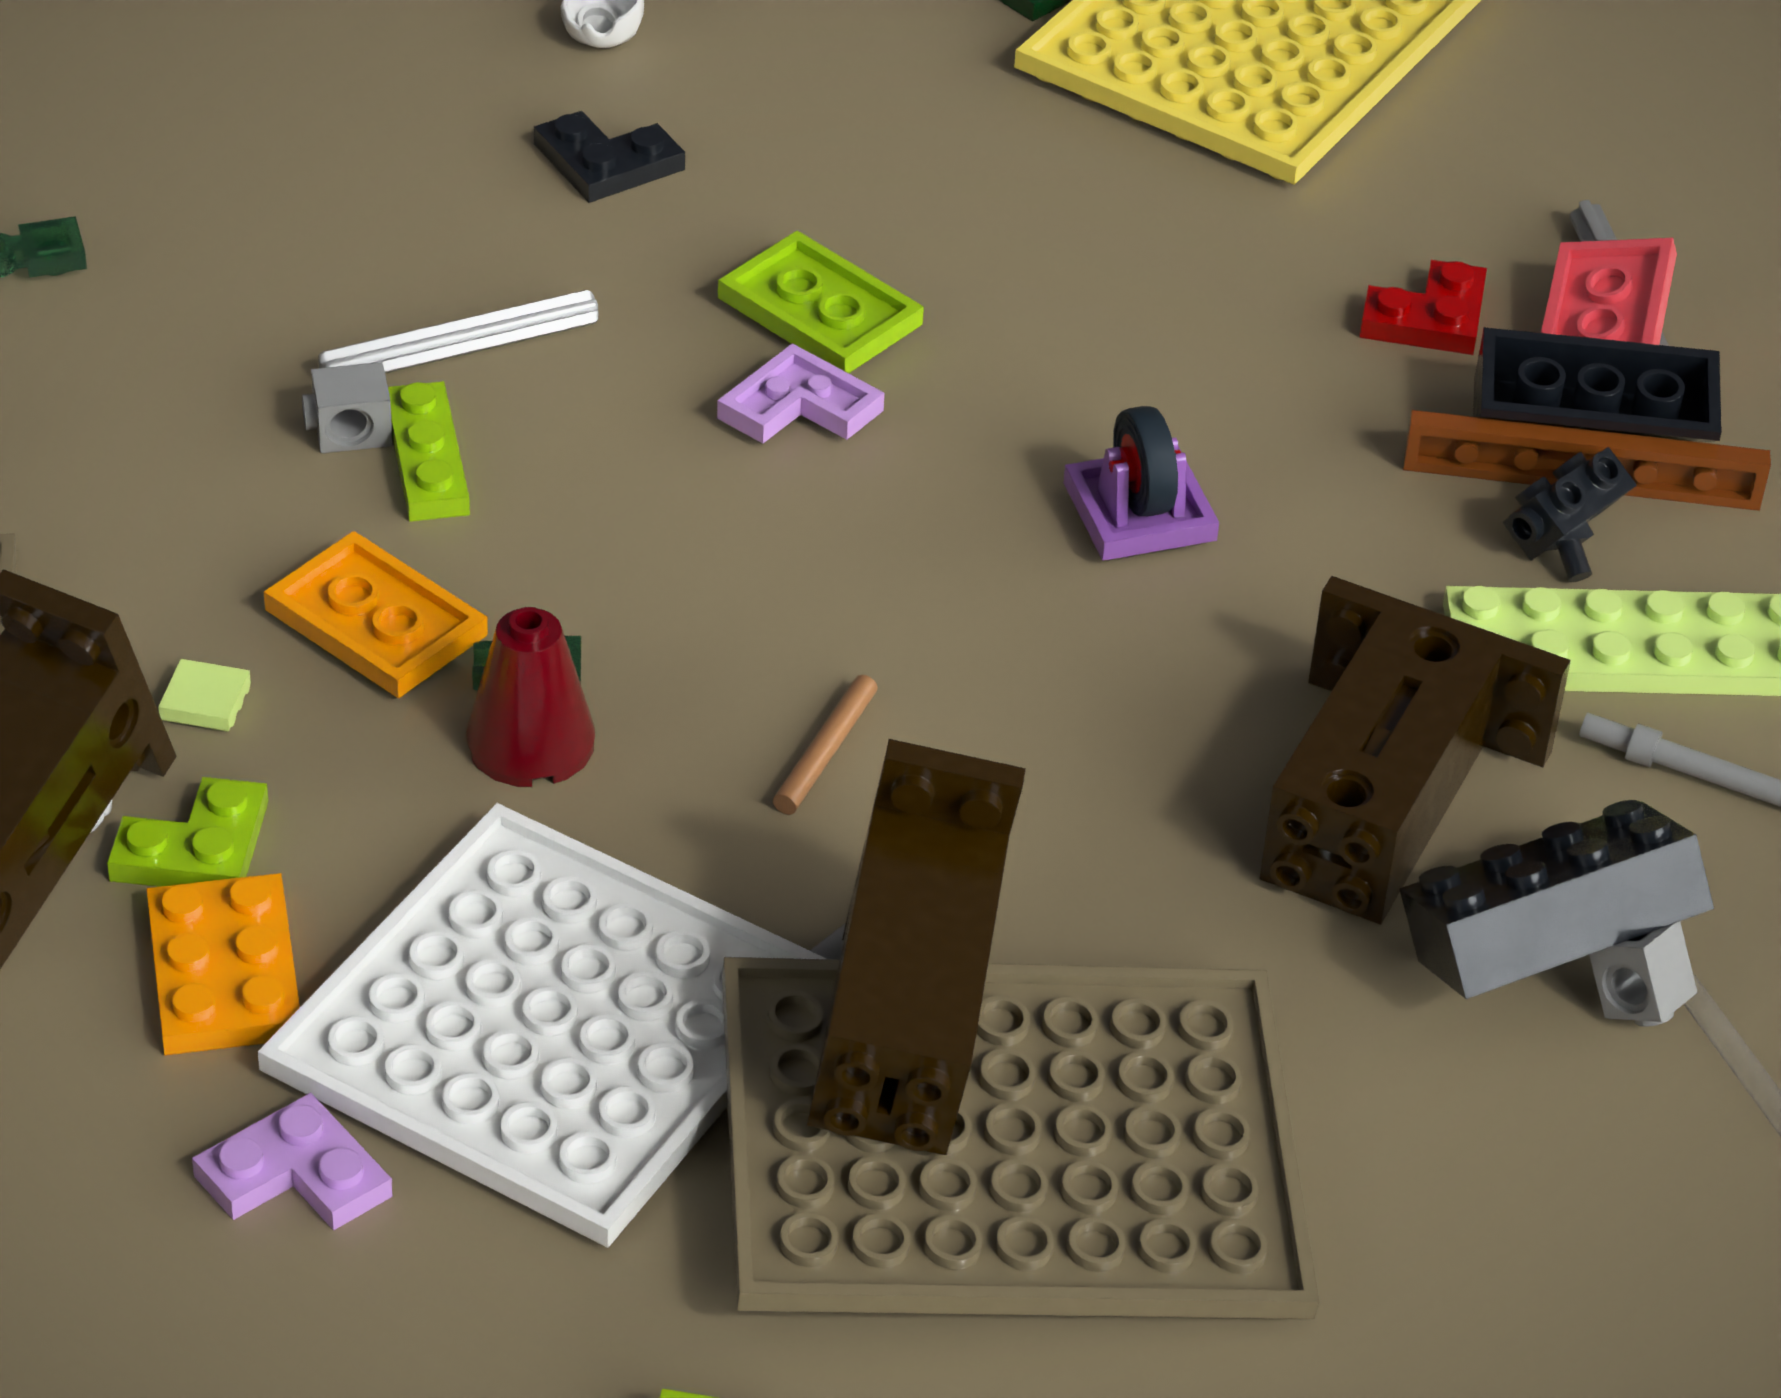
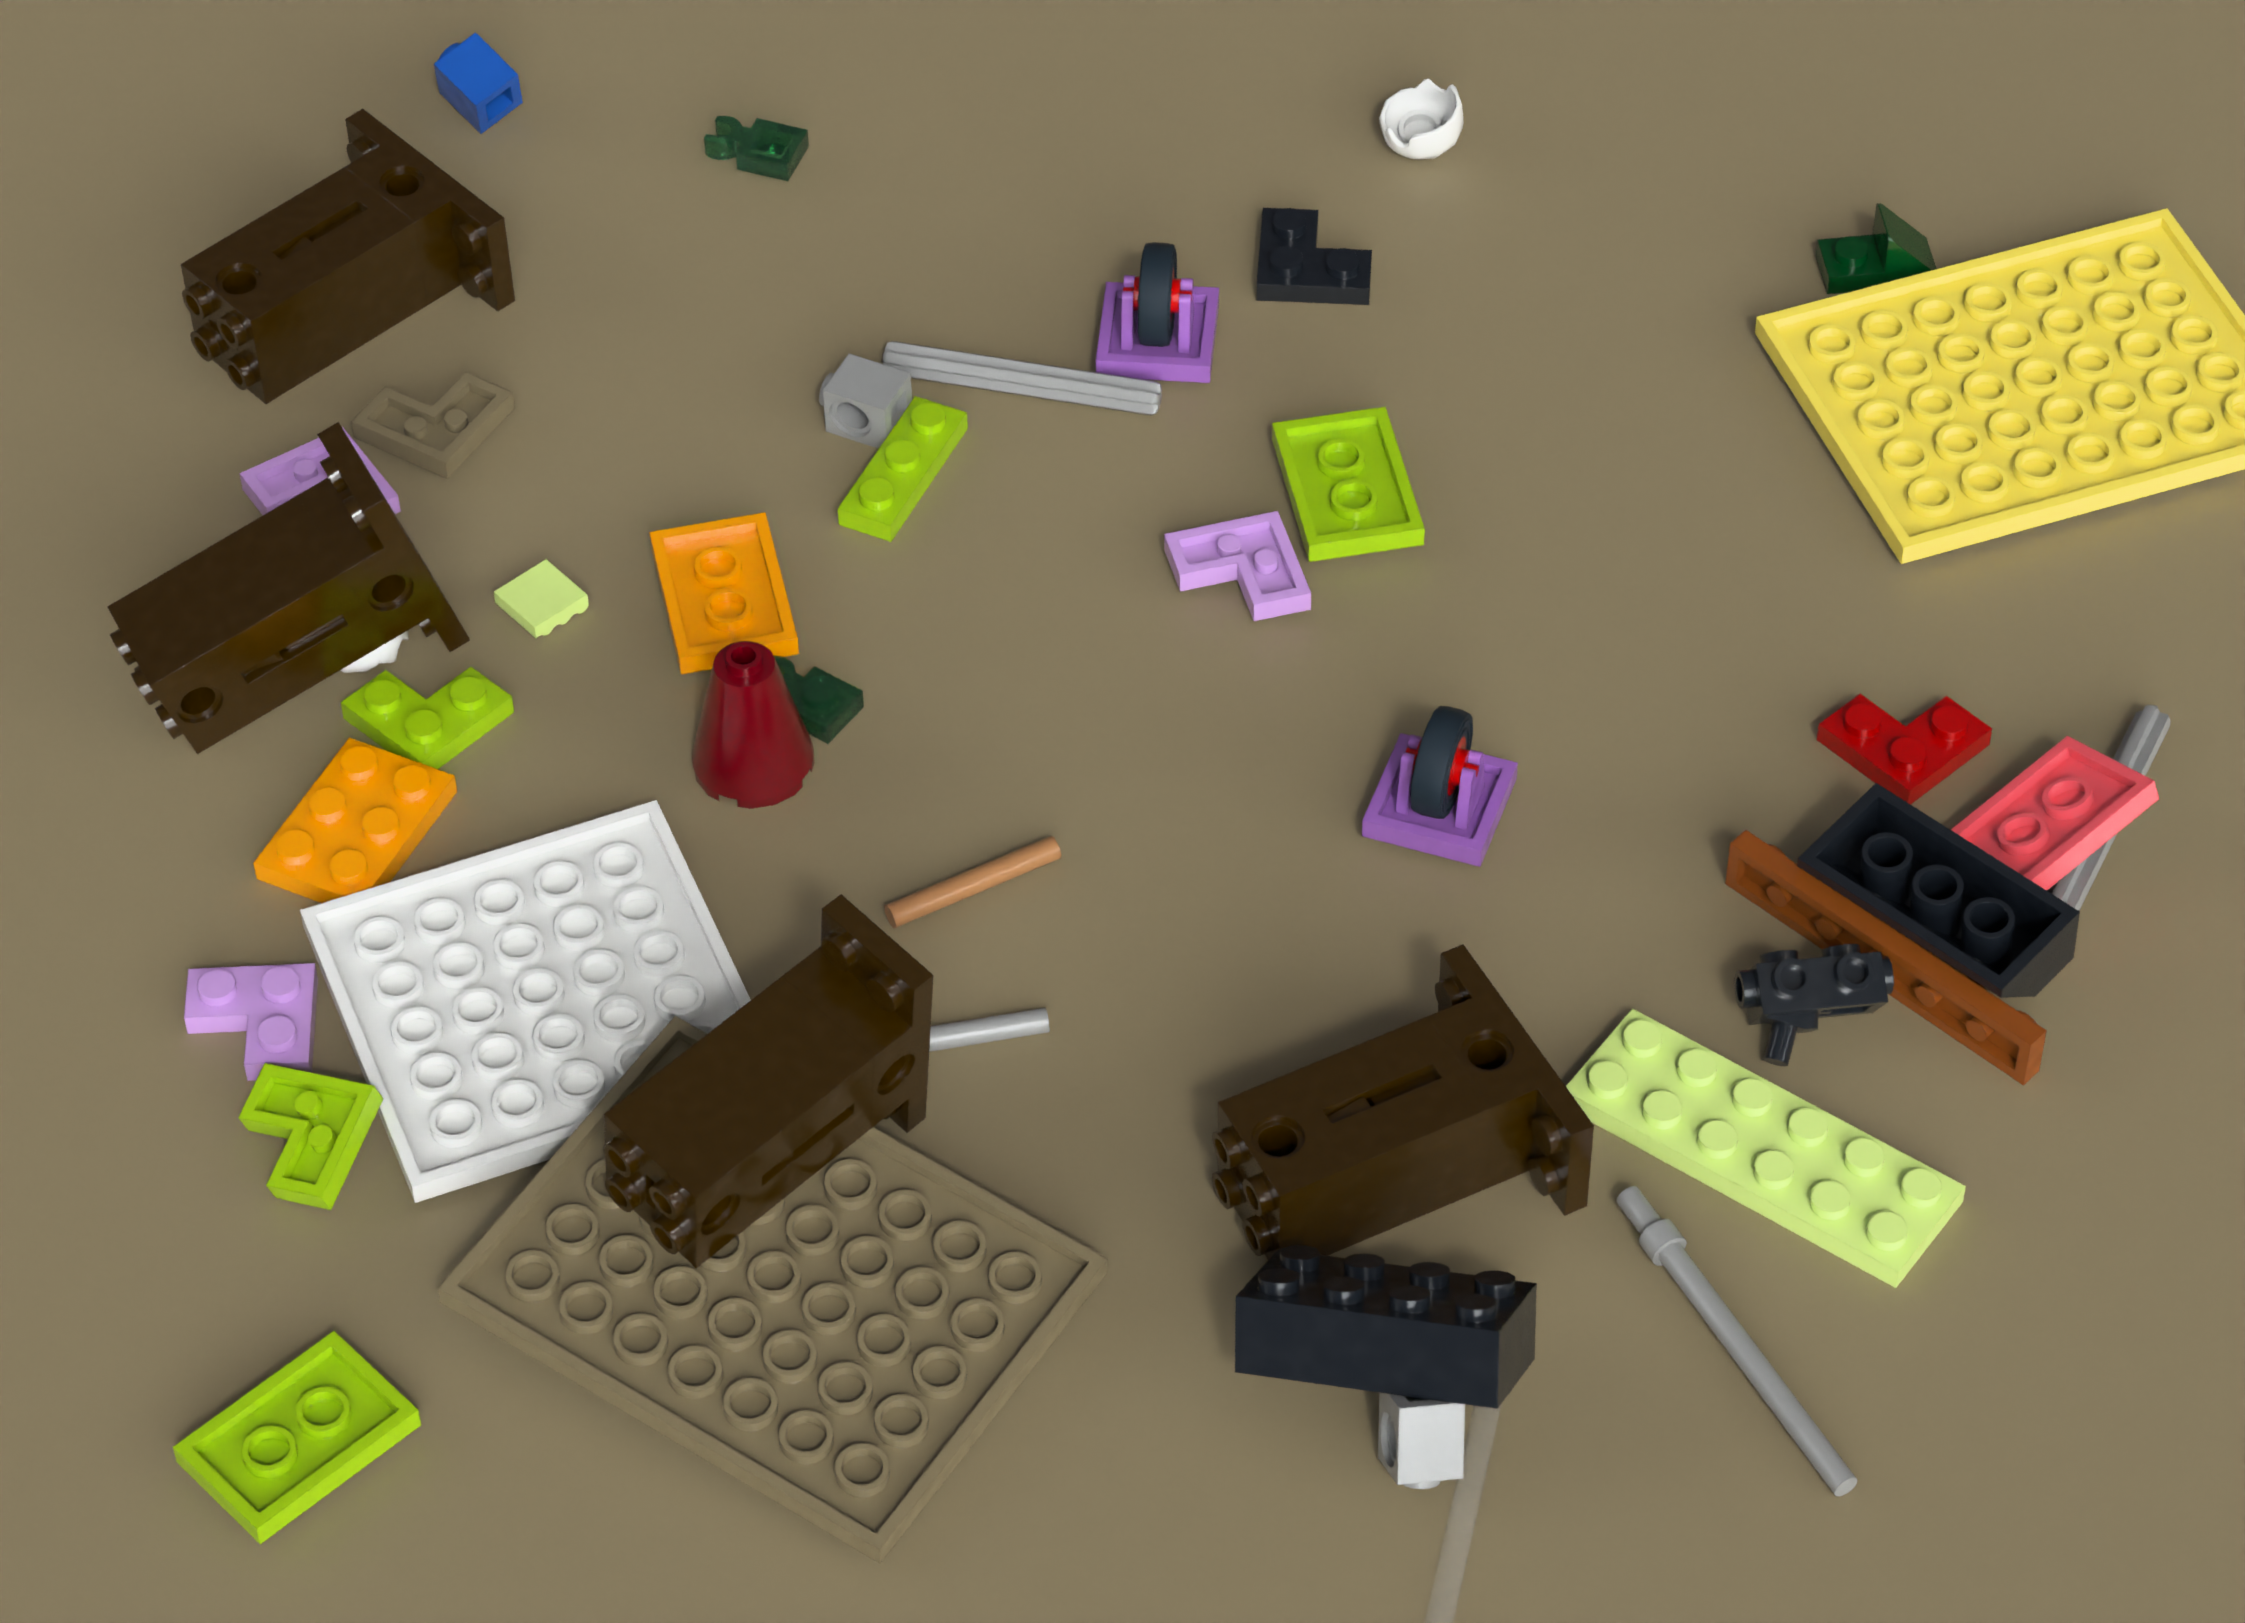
camera: 40 degrees right, 5 degrees up
(462, 1214) = (323, 1126): none -> lime plate
(542, 240) = (1158, 323): none -> medium lavender plate

